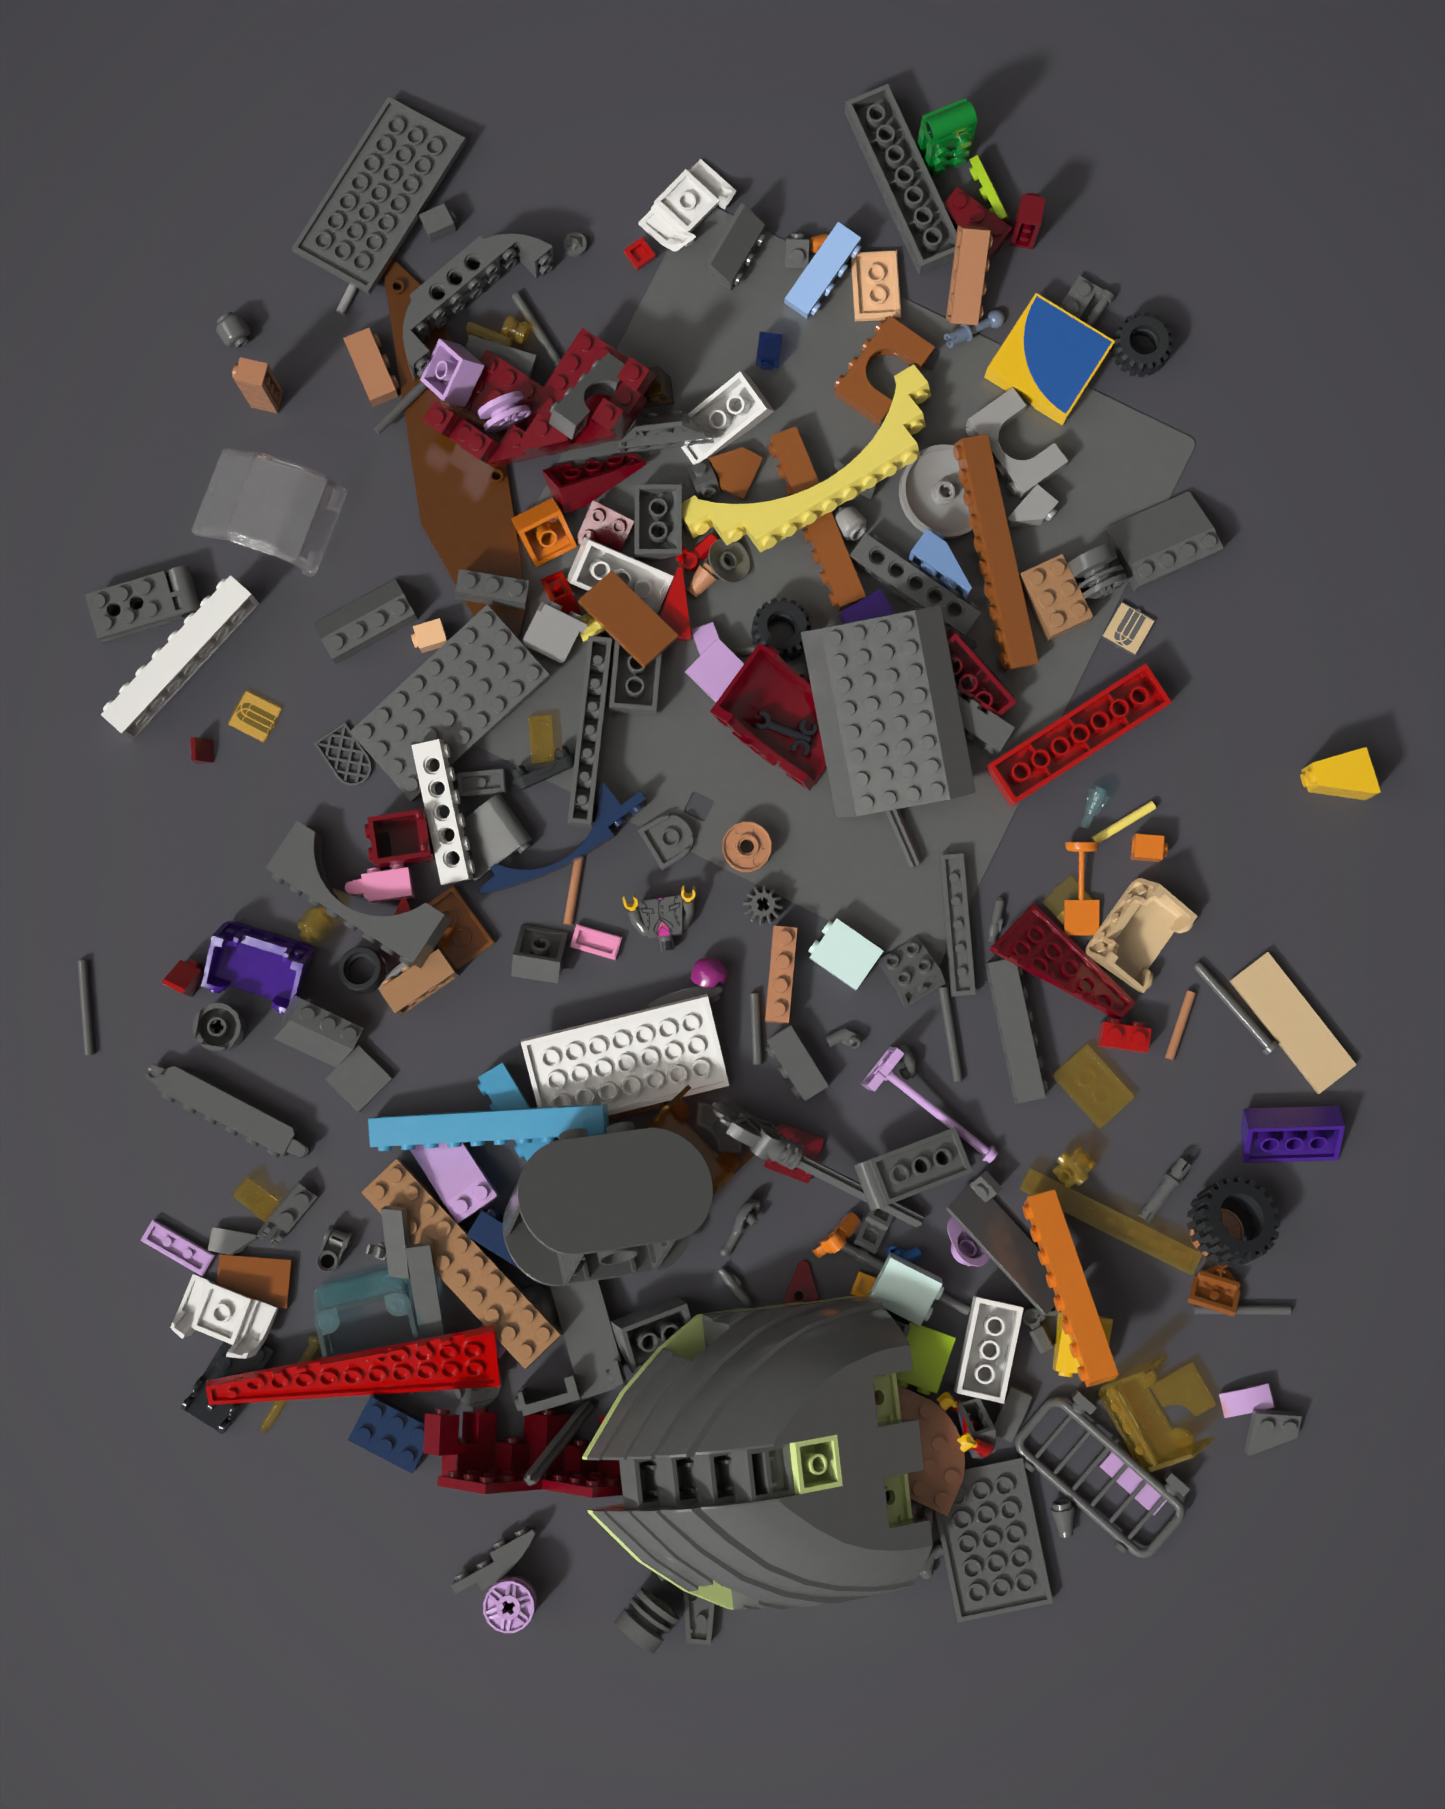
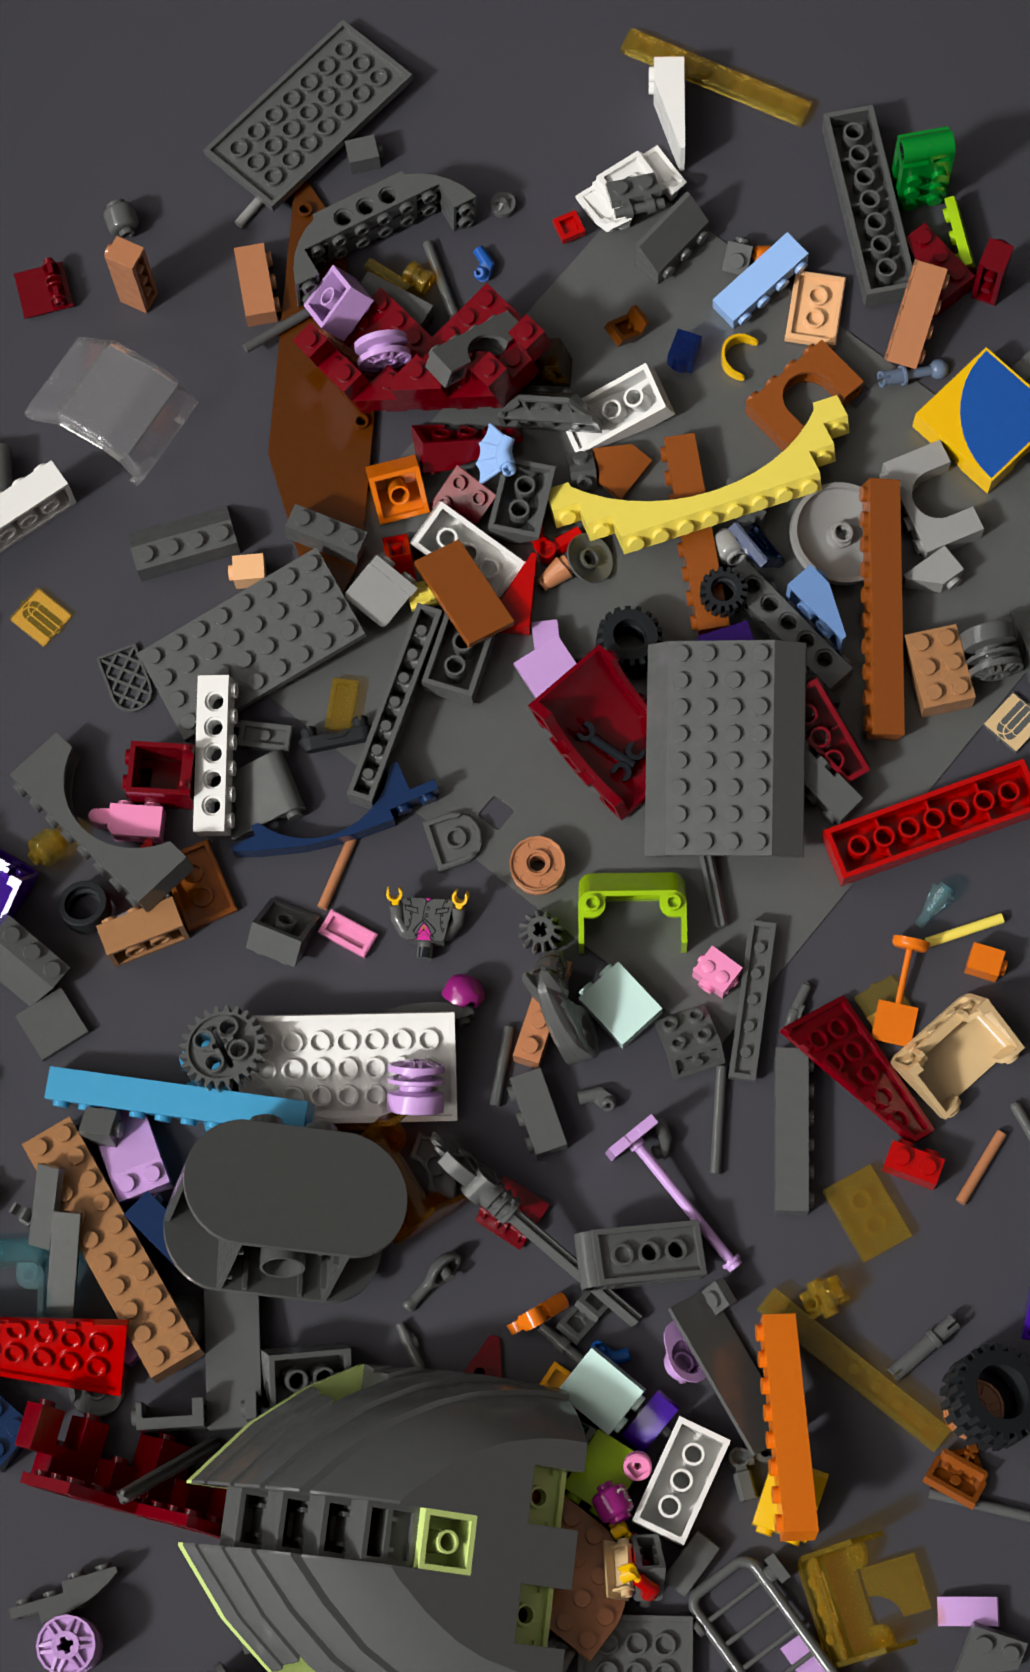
camera: 20 degrees right, 10 degrees down
(179, 411) = (43, 289): none -> dark red hinge
(426, 1161) = (101, 1127): none -> dark grey brick
(533, 1059) = (246, 1036): none -> dark grey gear
(573, 305) = (485, 266): none -> blue arm
(626, 485) = (495, 454): none -> light blue arm
(690, 1069) = (416, 1085): none -> lavender wheel
(691, 209) = (635, 190): none -> dark grey plate
(703, 114) = (668, 88): none -> white slope
(714, 338) = (628, 327): none -> reddish brown bracket
(738, 82) = (720, 78): none -> clear yellow plate
(804, 855) = (665, 887): none -> lime windscreen
(806, 982) = (567, 1022): none -> dark grey animal
(816, 327) = (729, 342): none -> yellow helmet
(862, 556) = (723, 577): none -> black tyre
(873, 518) = (756, 545): none -> dark blue piece
(922, 907) = (716, 972): none -> bright pink head
(937, 1383) = (612, 1503): none -> magenta head
(950, 1346) = (637, 1465): none -> bright pink tile
(950, 1427) = (617, 1555): none -> tan hinge
(951, 1304) = (650, 1421): none -> dark purple slope

